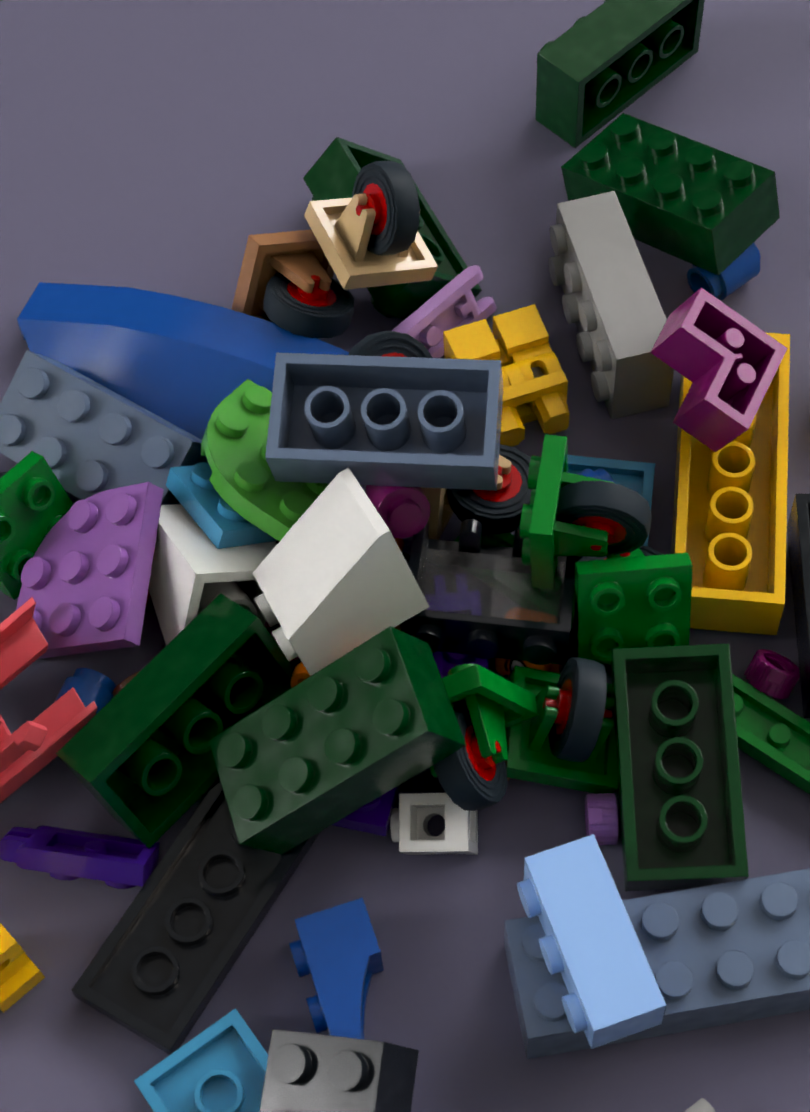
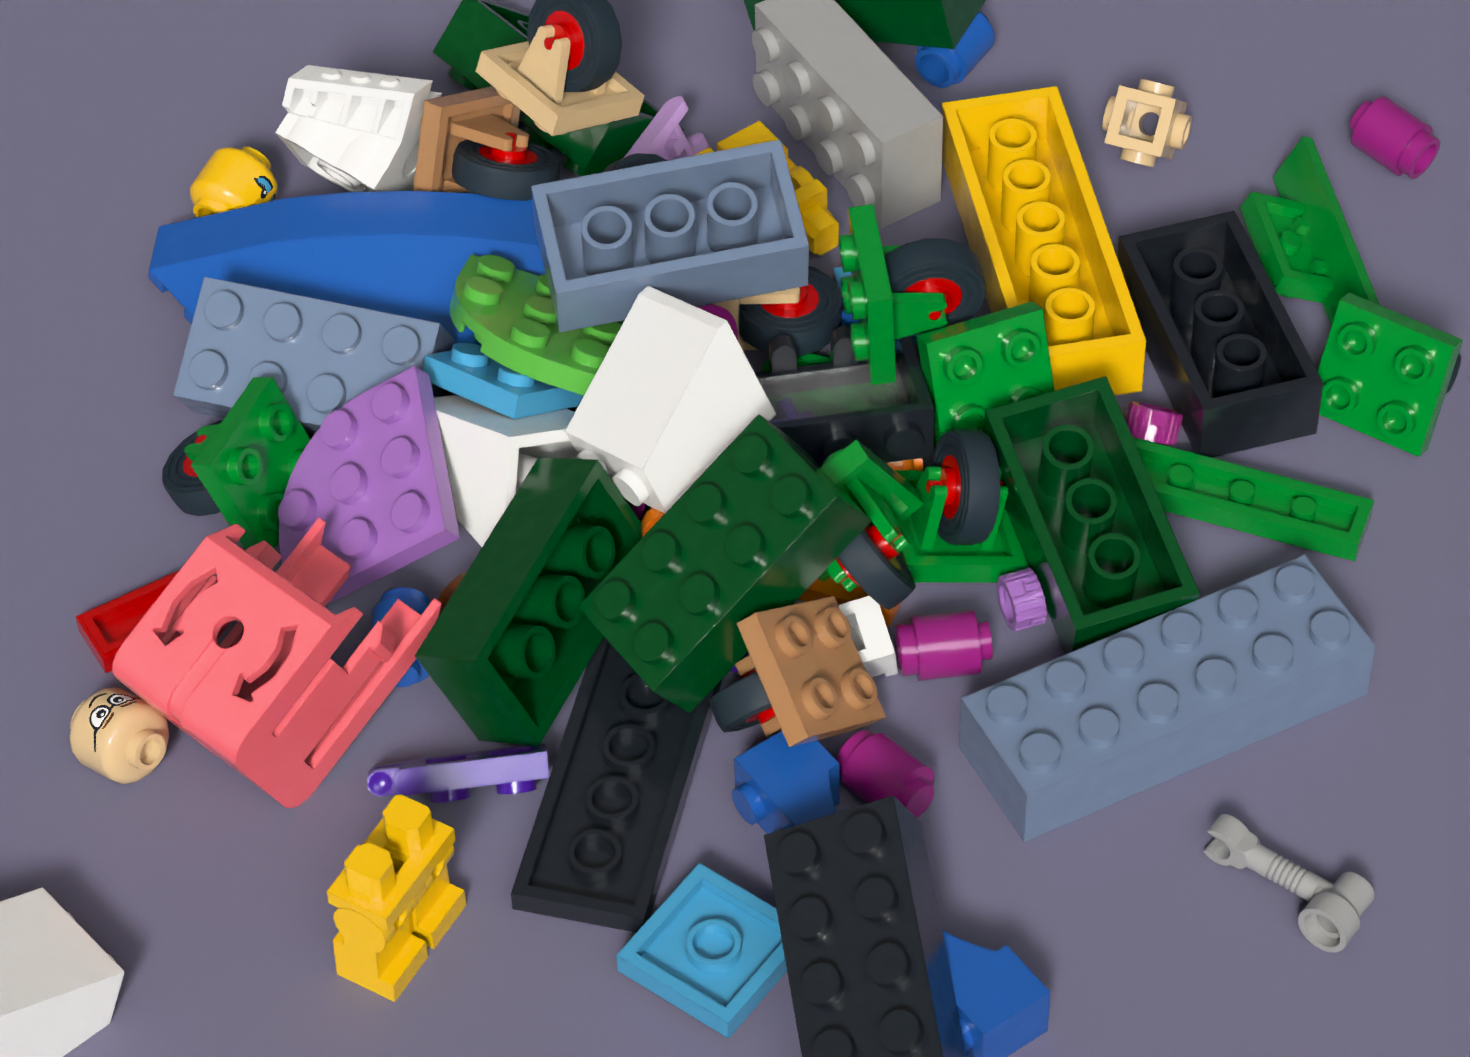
camera: 20 degrees left, 10 degrees down
(109, 259) = (233, 181): none -> yellow head
(198, 240) = (355, 126): none -> white slope
(375, 861) = (799, 676): none -> medium nougat plate
(425, 964) = (879, 768): none -> magenta brick
(510, 839) = (943, 645): none -> magenta brick
(590, 942) = (1064, 677): light blue brick -> none
(725, 361) = (1001, 113): magenta brick -> none

